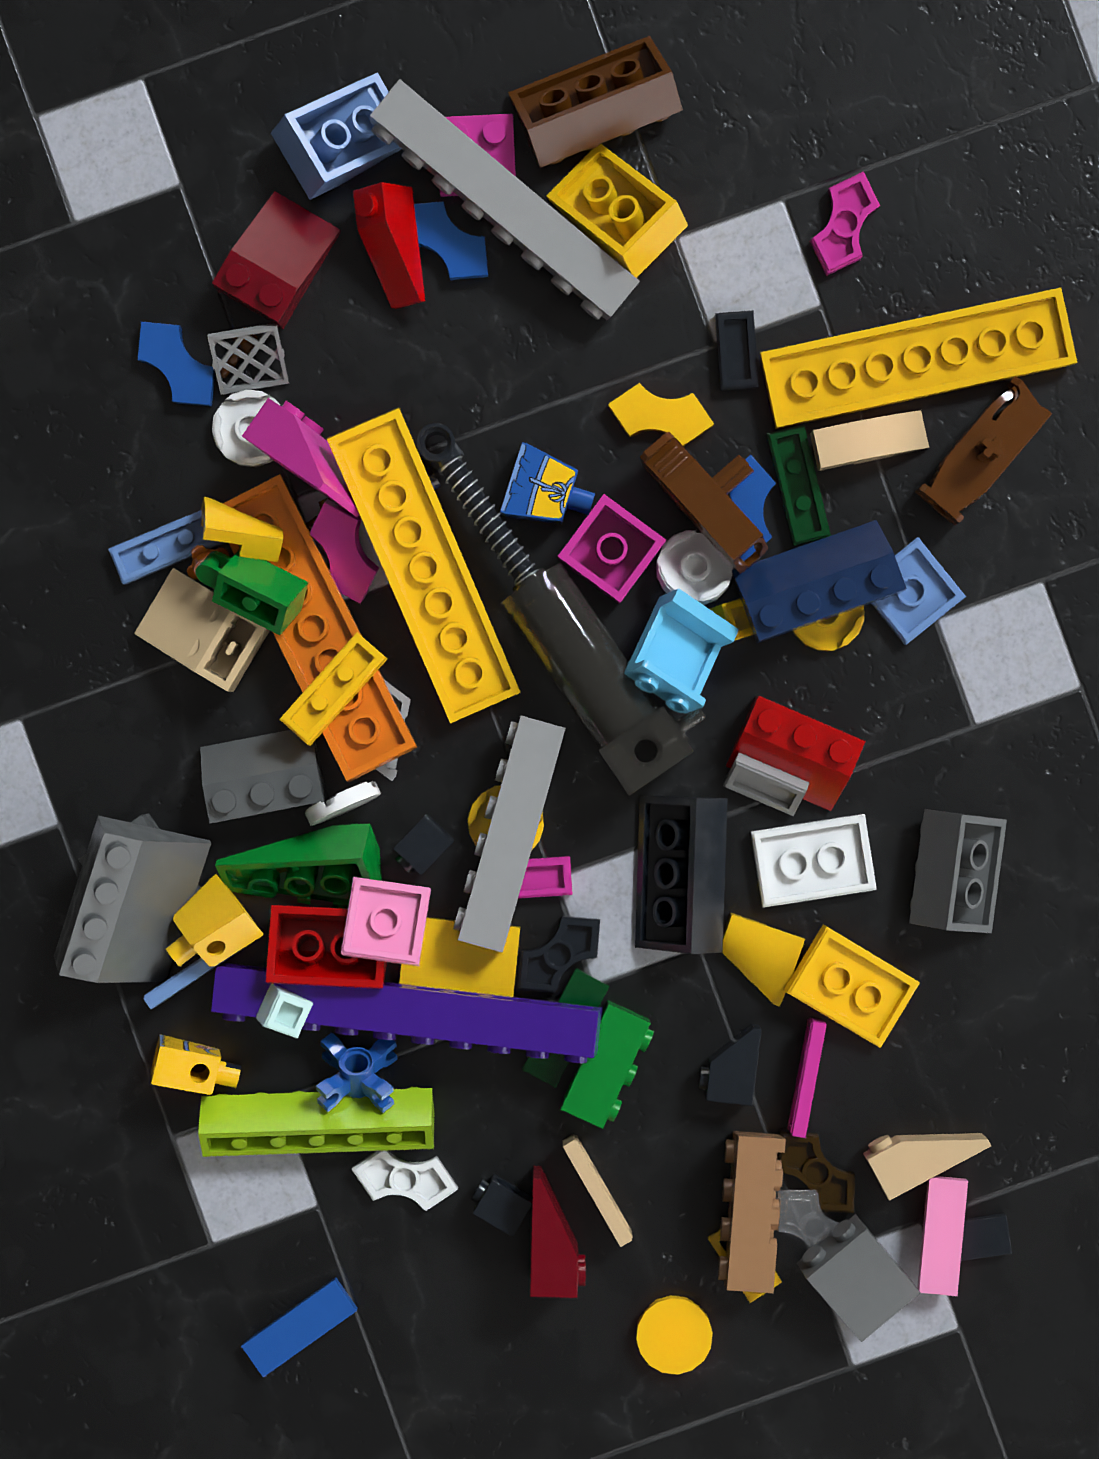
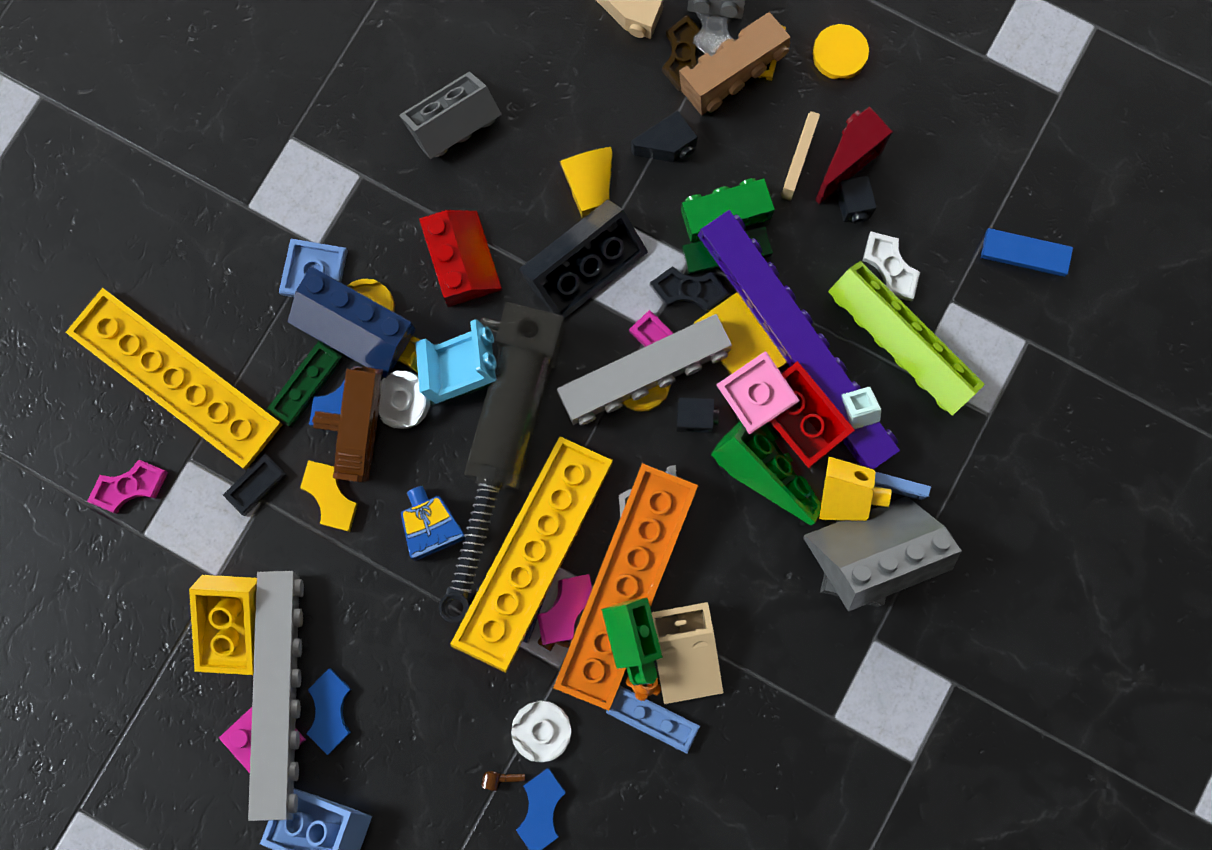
camera: 135 degrees left, 10 degrees down
(177, 1057) = (942, 436): yellow torso -> none
(241, 334) = (489, 784): light grey window -> none
(255, 537) = (608, 685): yellow slope -> none
(260, 775) = (738, 543): dark grey slope -> none
(276, 259) = (425, 805): dark red slope -> none
(299, 449) = (527, 688): dark pink slope -> none
(333, 689) = (651, 540): yellow tile -> none
(342, 802) = (714, 480): white tile -> none
(356, 1084) = (869, 339): blue pin -> none
(391, 239) = (355, 742): red slope -> none
(596, 101) = (169, 693): reddish brown slope -> none
(611, 549) = (431, 453): dark pink brick -> none
(766, 784) = (492, 256): light grey tile -> none
(806, 1077) = (635, 98): dark pink tile -> none
(813, 860) = (513, 197): white tile -> none
(851, 986) = (564, 117): yellow tile -> none
(869, 440) = (245, 365): tan slope -> none
(984, 452) = (197, 296): reddish brown piece -> none

